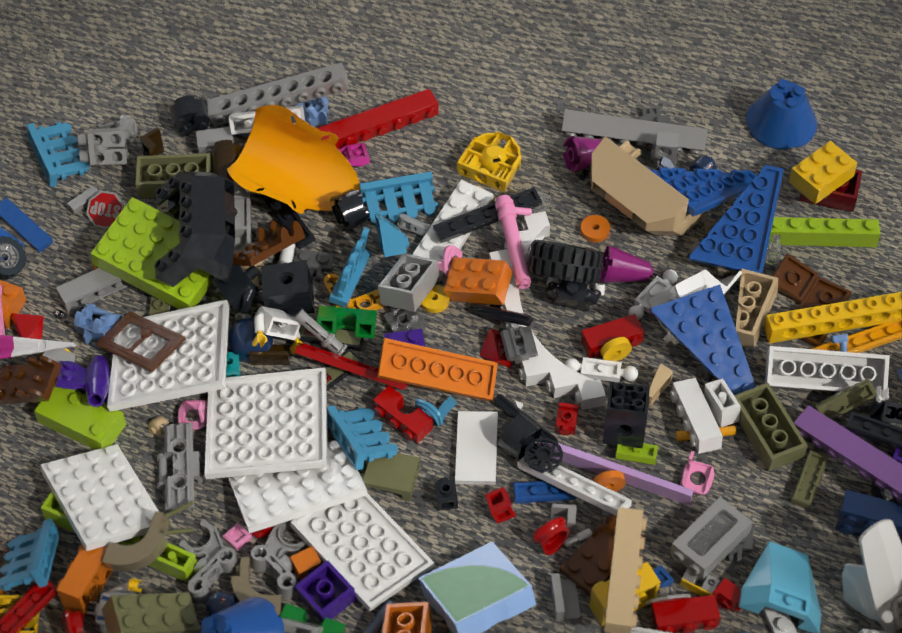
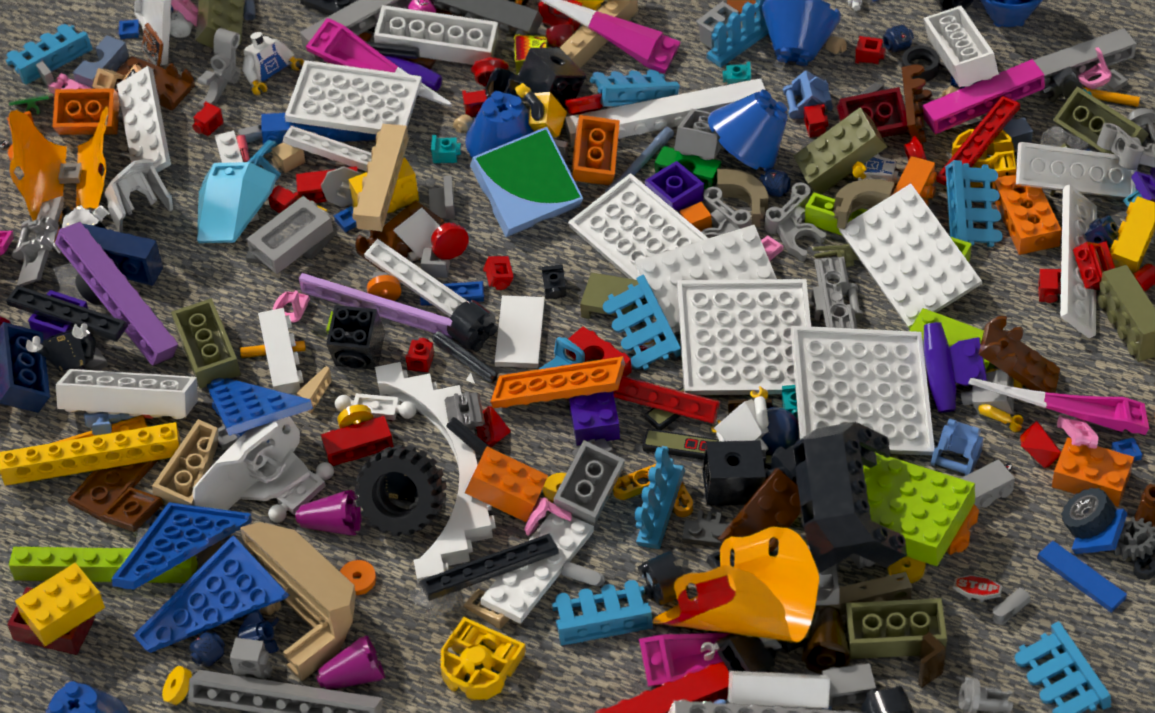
camera: 175 degrees left, 5 degrees down
(104, 145) = (997, 658): light grey hips -> none
(141, 341) = (898, 409): reddish brown door -> none
(327, 339) = (684, 423): light grey pin -> none
(359, 320) = (681, 447): green arch -> none
(390, 237) = (610, 536): dark azure slope -> none
(507, 216) = (465, 547): bright pink cylinder -> none
(543, 455) = (446, 303): black wheel -> none
(581, 548) = (417, 231): none -> white sticker
(718, 141) = (176, 685): none -> yellow piece
(722, 402) = (249, 361): white brick -> none
(809, 479) = (178, 298): olive plate -> none
(847, 399) = (124, 365): olive plate -> none

